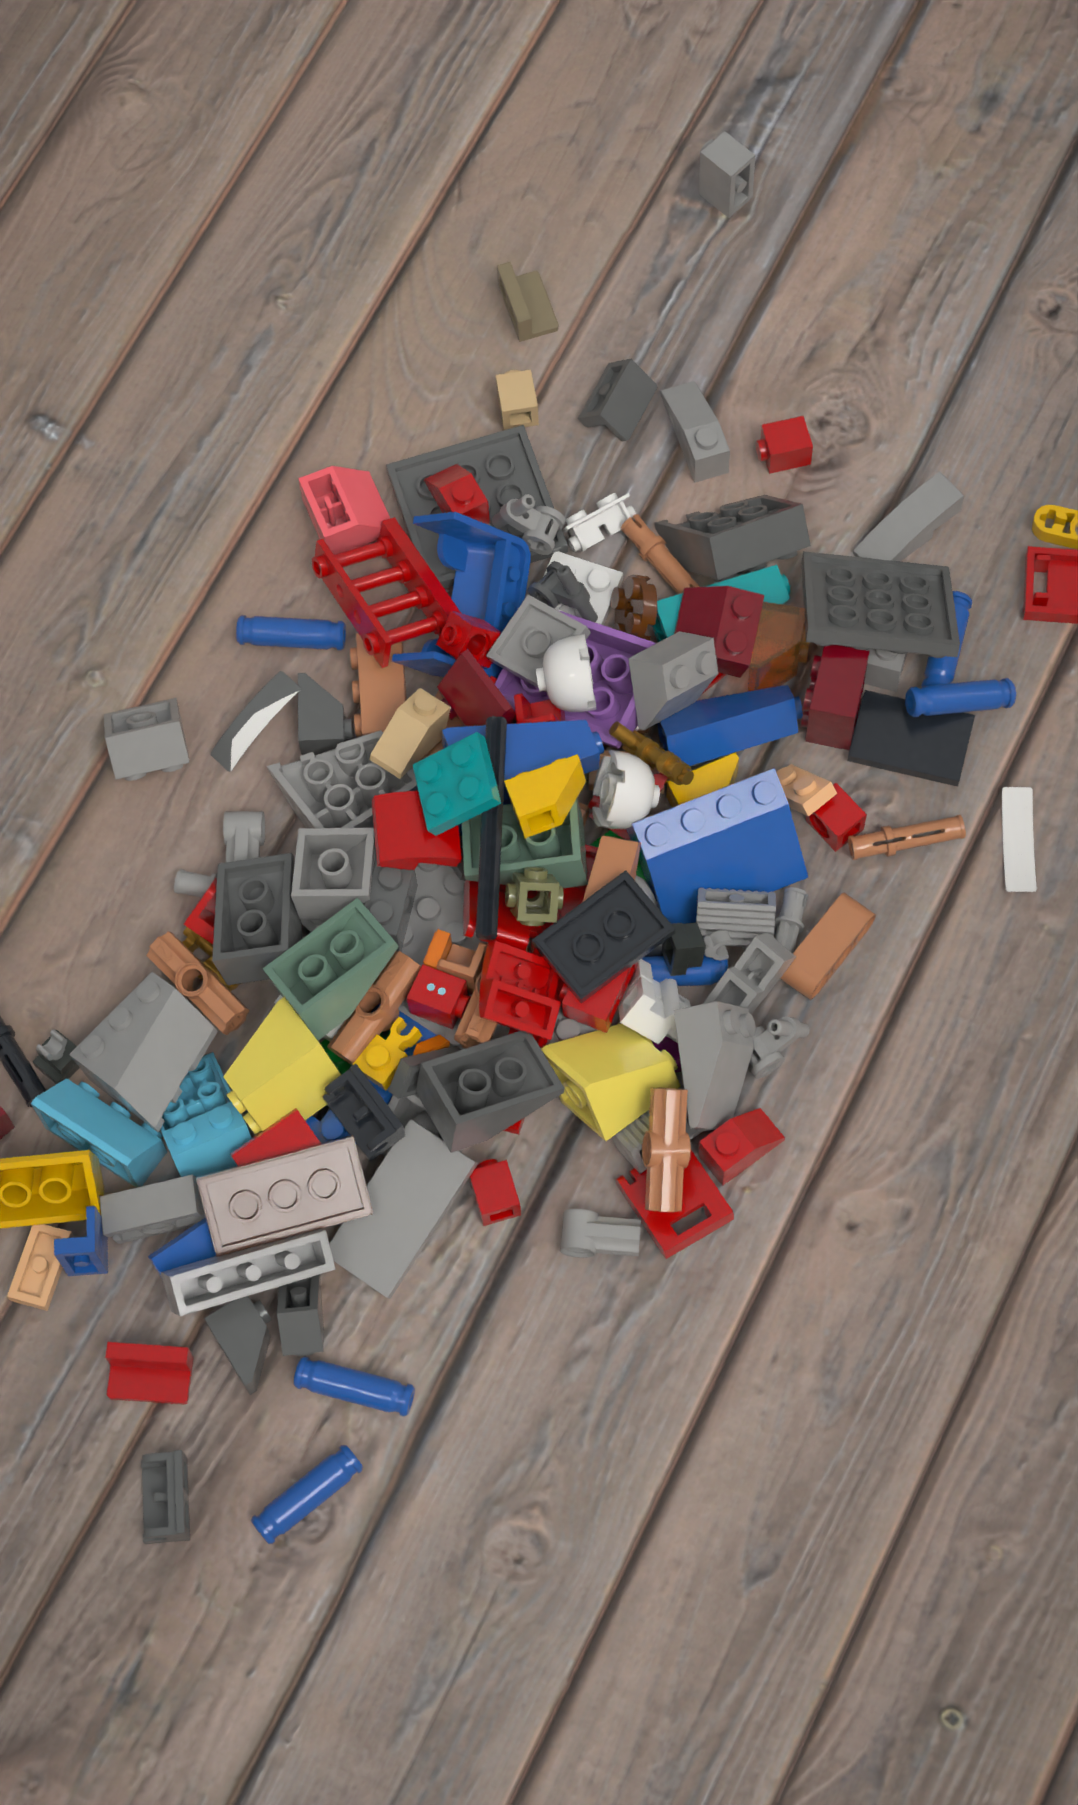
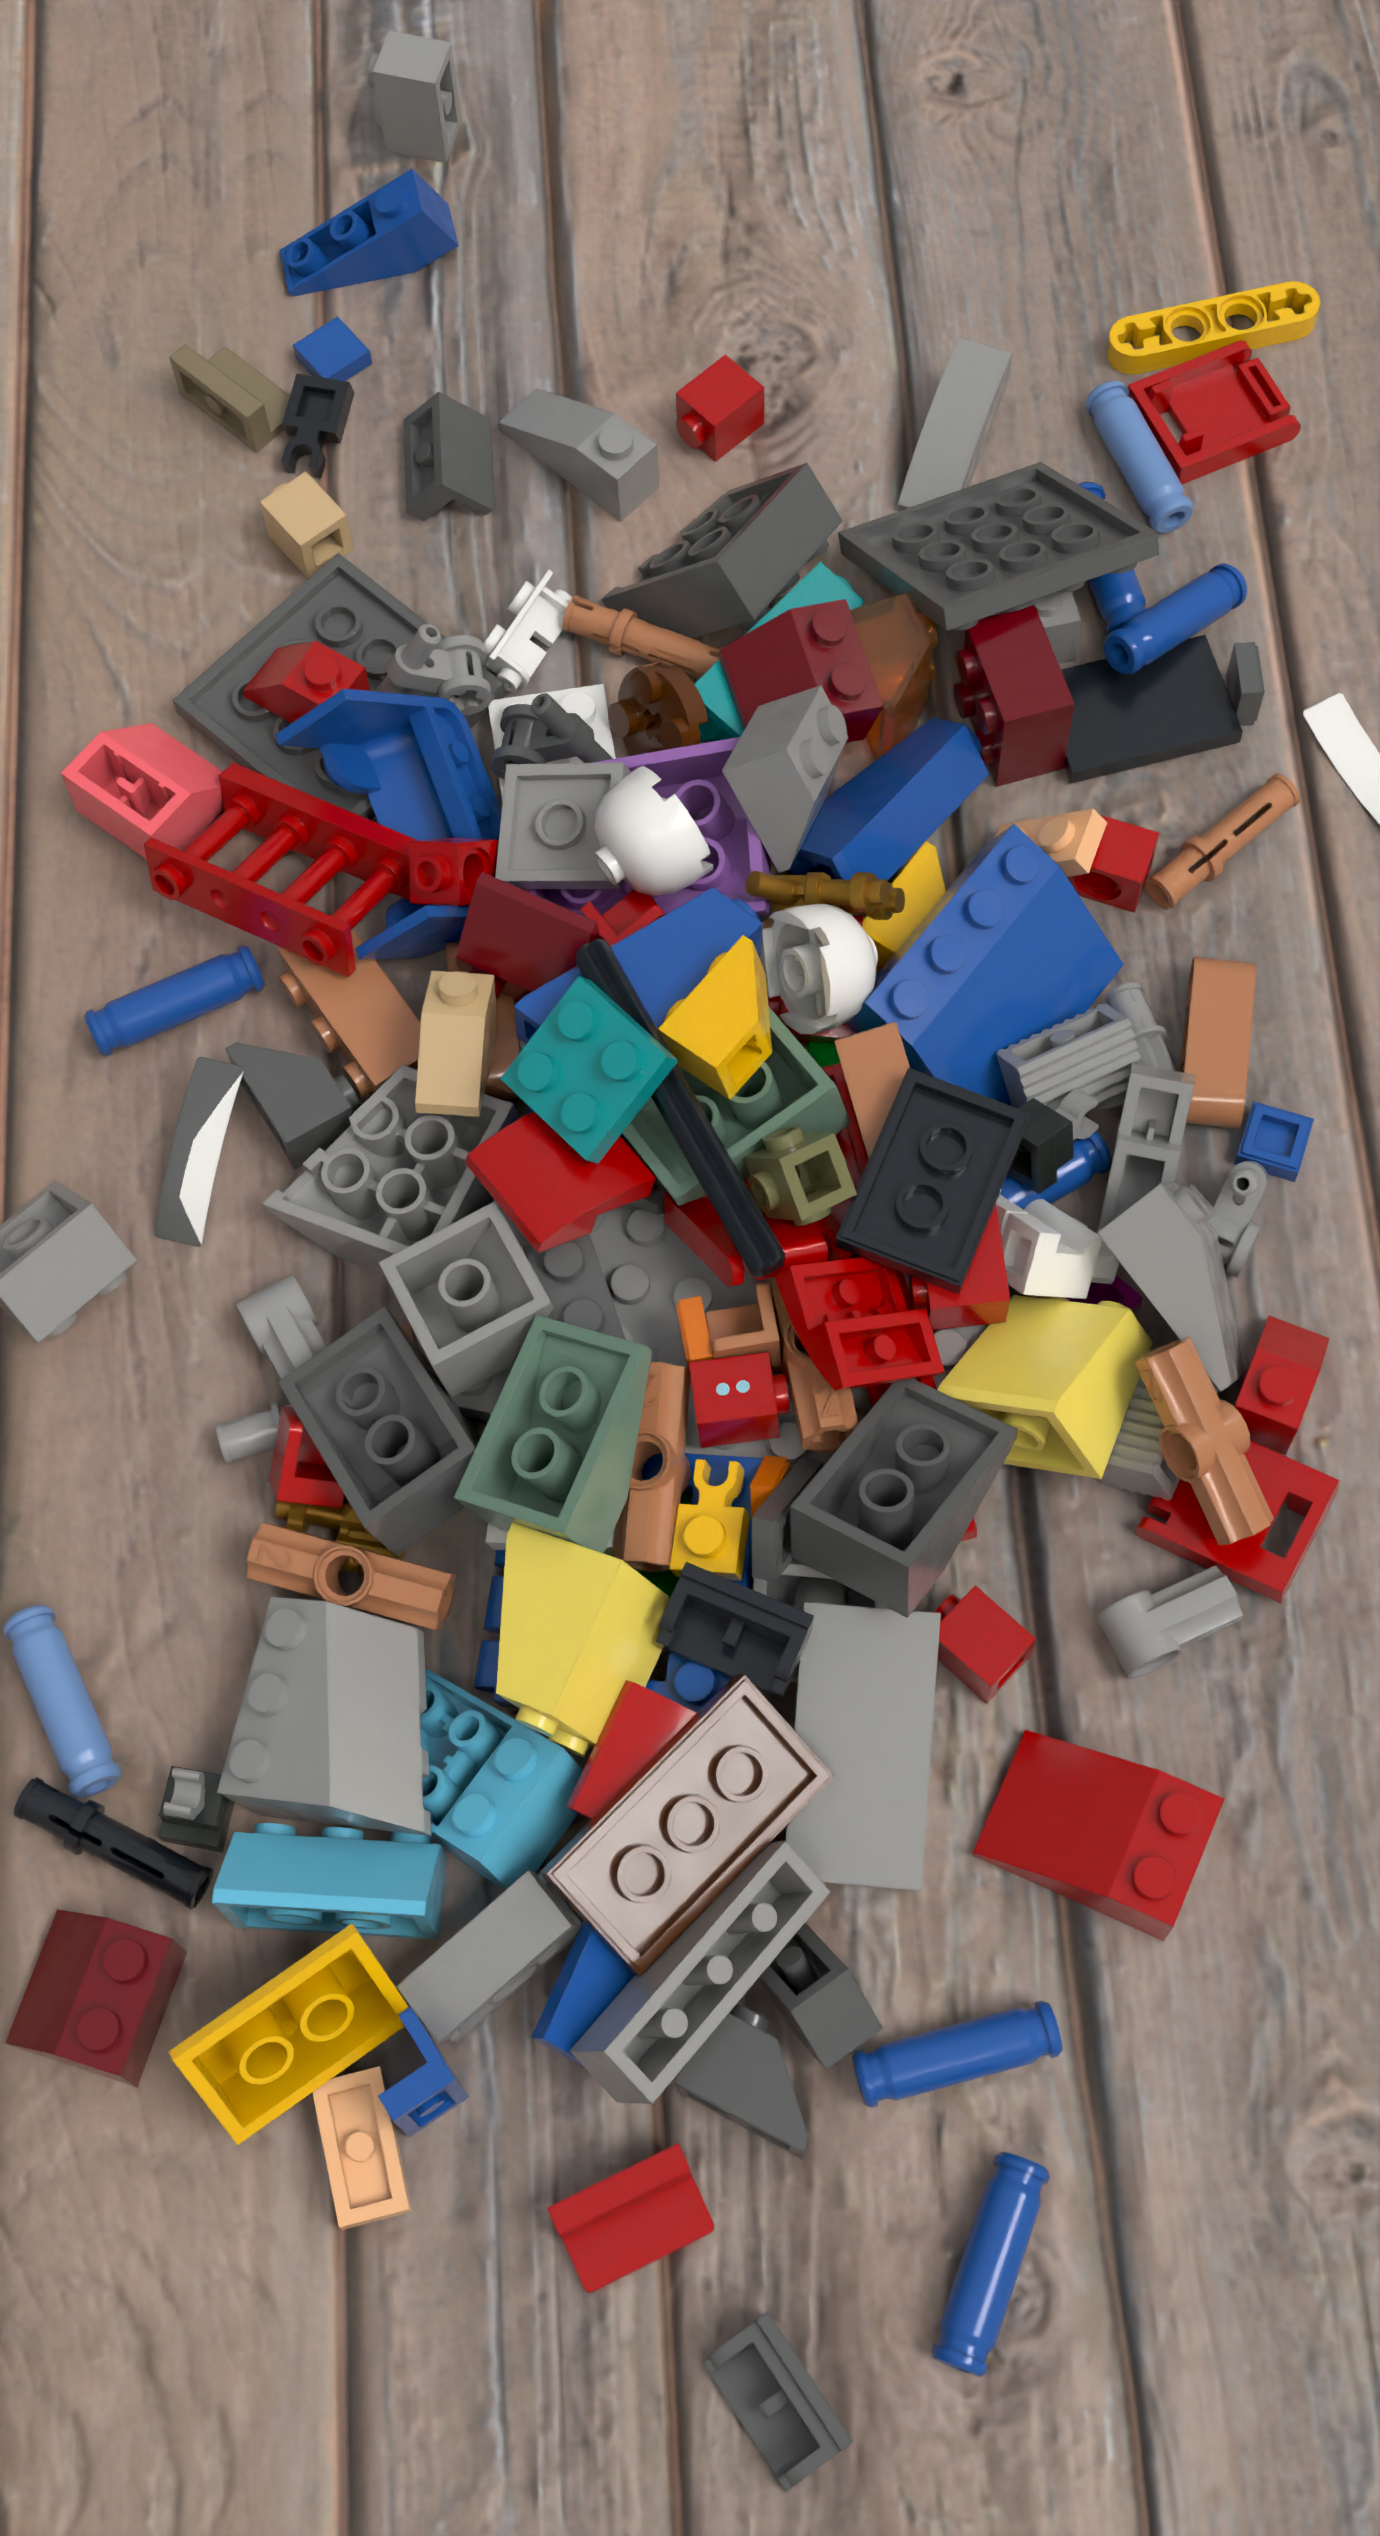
camera: 30 degrees left, 0 degrees up
(24, 968) = (62, 1701): none -> medium blue axle
(496, 1320) = (1099, 1831): none -> red slope
(560, 337) = (315, 415): none -> black plate
(593, 304) = (332, 352): none -> blue tile
(657, 247) = (373, 239): none -> blue slope
(826, 1017) = (1275, 1140): none -> blue tile
(977, 755) = (1245, 682): none -> dark grey tile
(1006, 591) = (1139, 456): none -> medium blue axle

